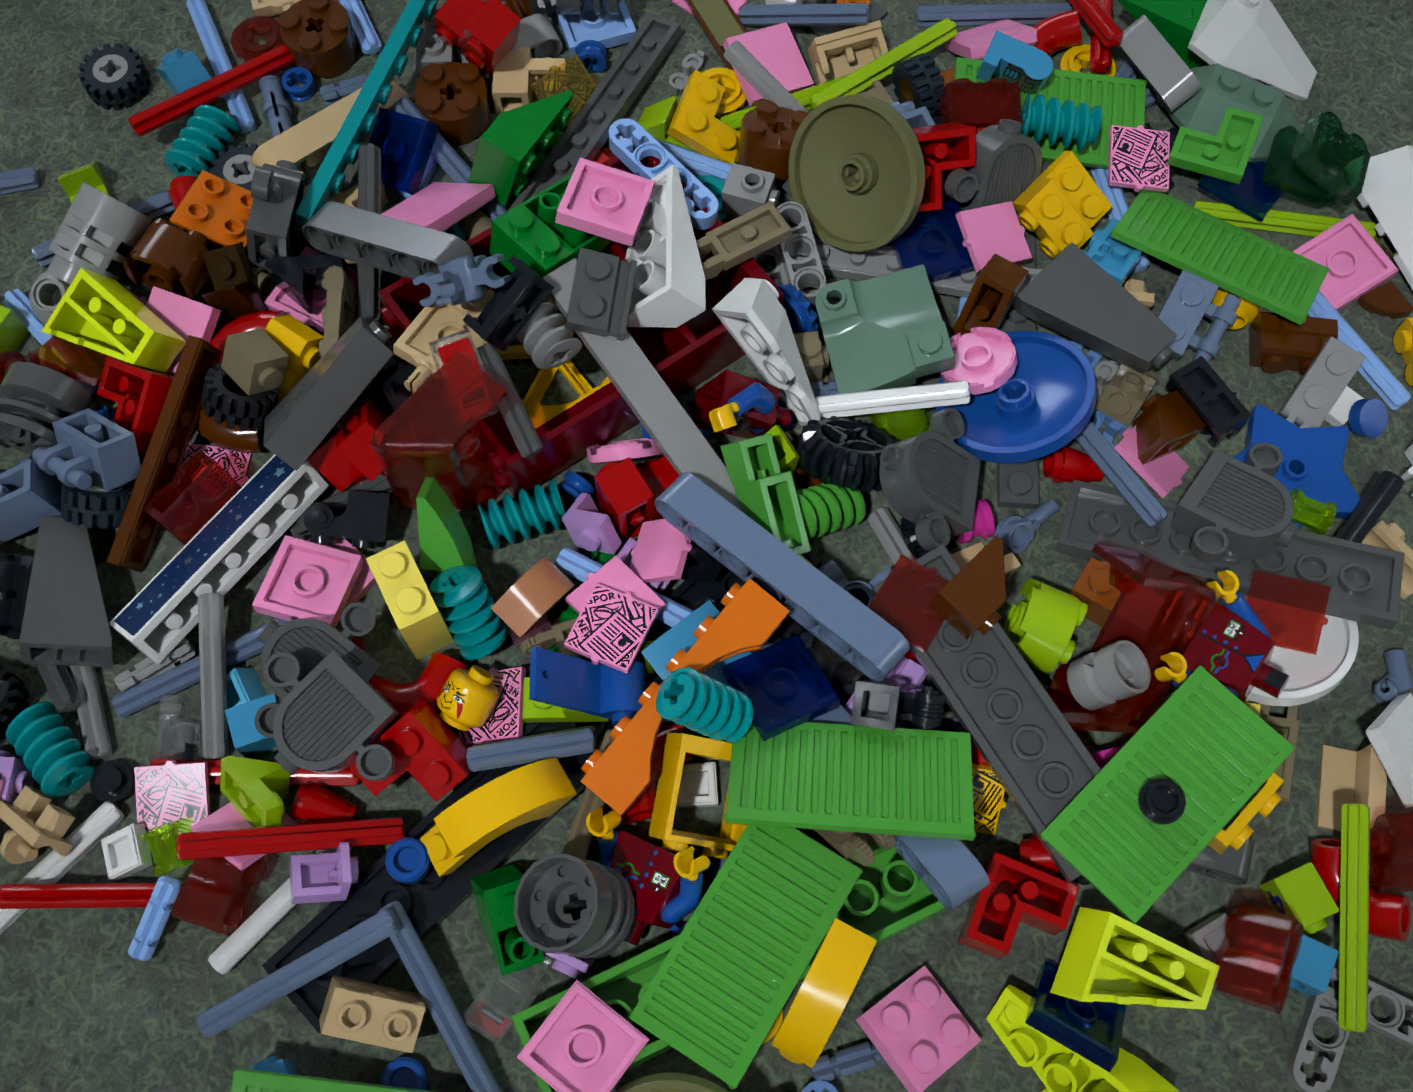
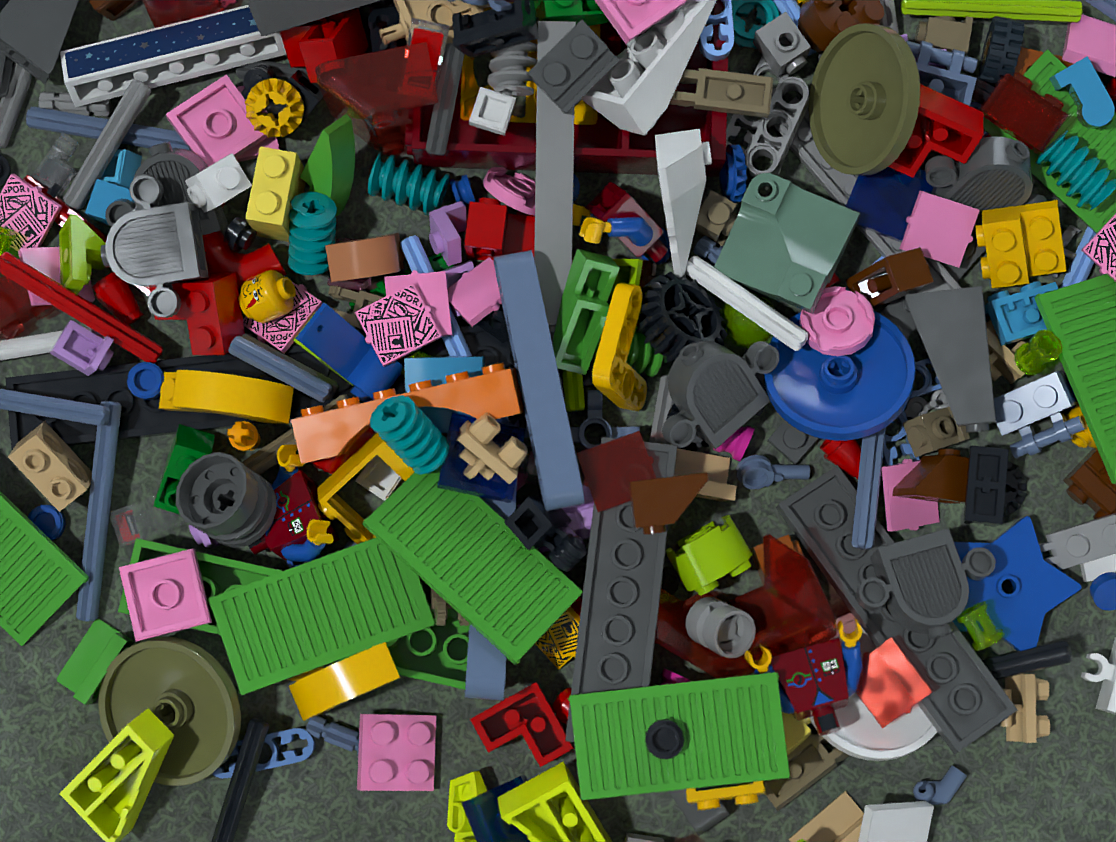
camera: 40 degrees right, 15 degrees up
(348, 619) = (217, 183): none -> white bracket
(354, 548) = (281, 93): none -> yellow gear
(401, 661) = (239, 235): none -> black plate
(541, 839) = (244, 436): none -> light orange axle
(555, 387) = (492, 111): none -> white tile
(770, 658) = (486, 456): none -> tan hips
(832, 521) = (610, 371): none -> yellow beam
(1152, 271) = (1037, 359): none -> clear neon green bush

